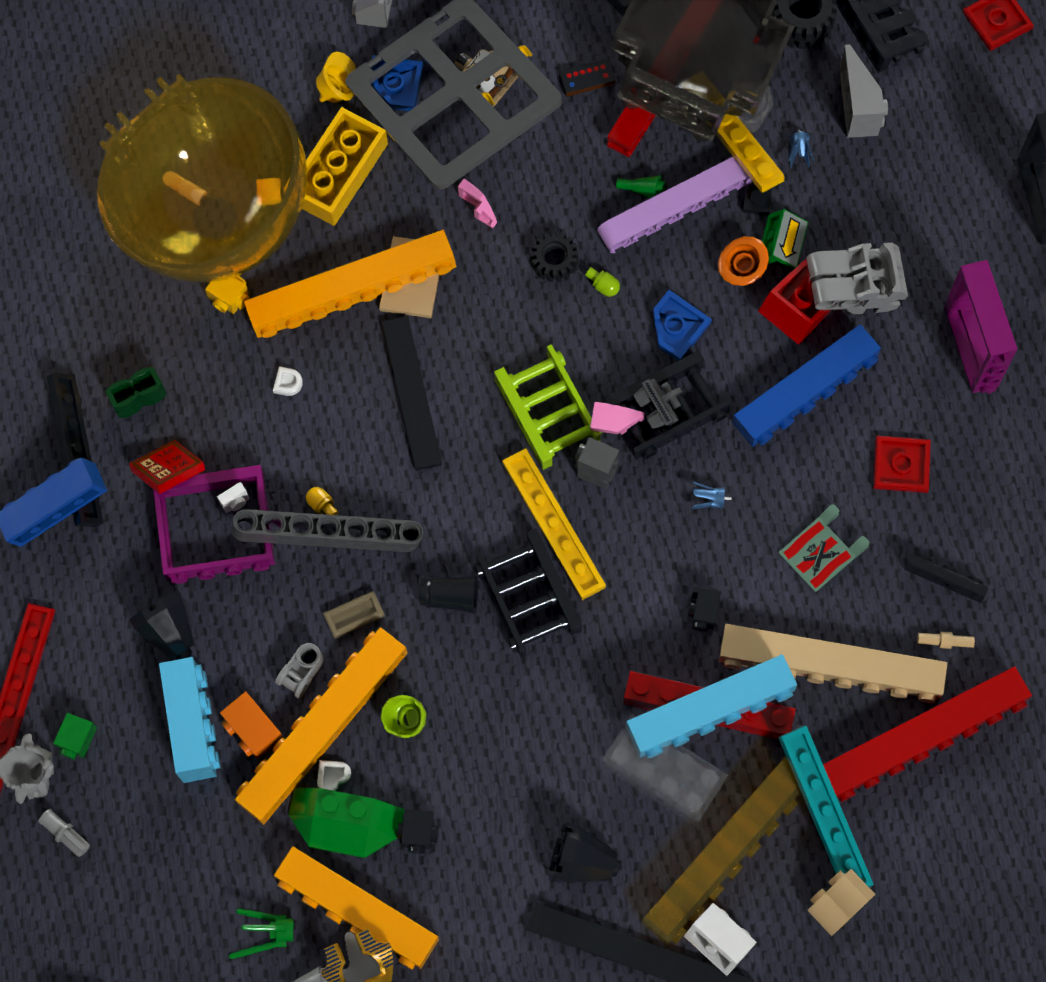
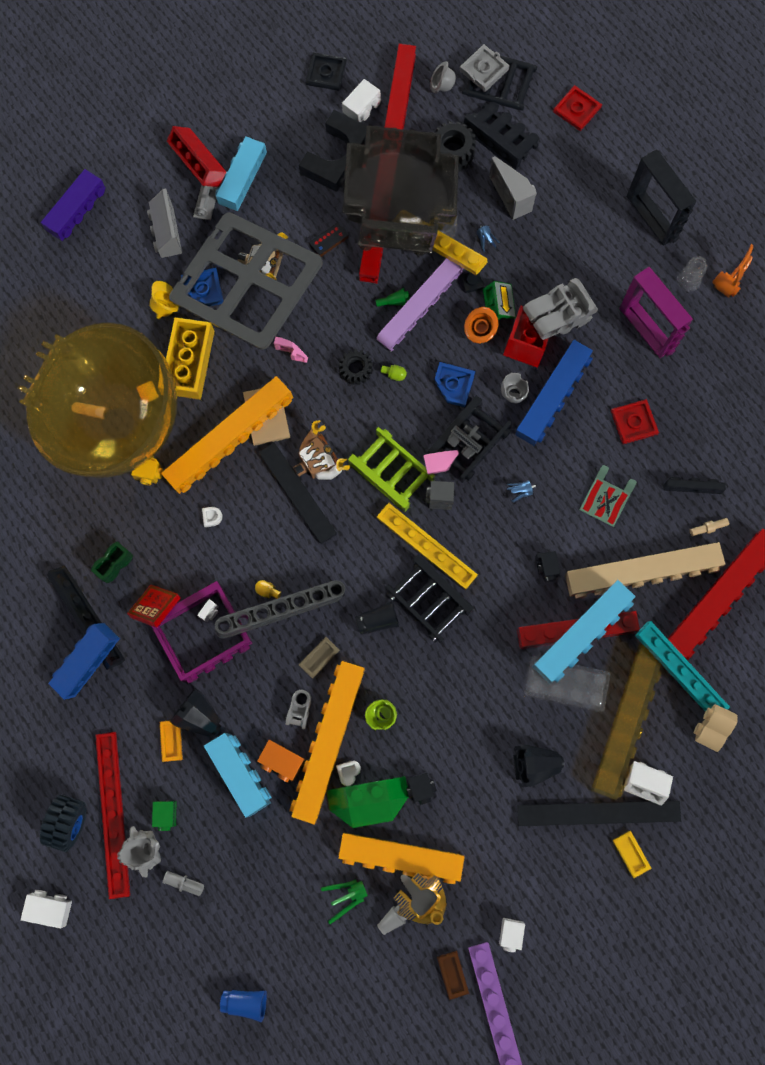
camera: 20 degrees left, 5 degrees up
(119, 649) = (170, 742): none -> light orange tile
(457, 354) = (318, 456): none -> torso
(755, 351) = (514, 381): none -> light grey hair

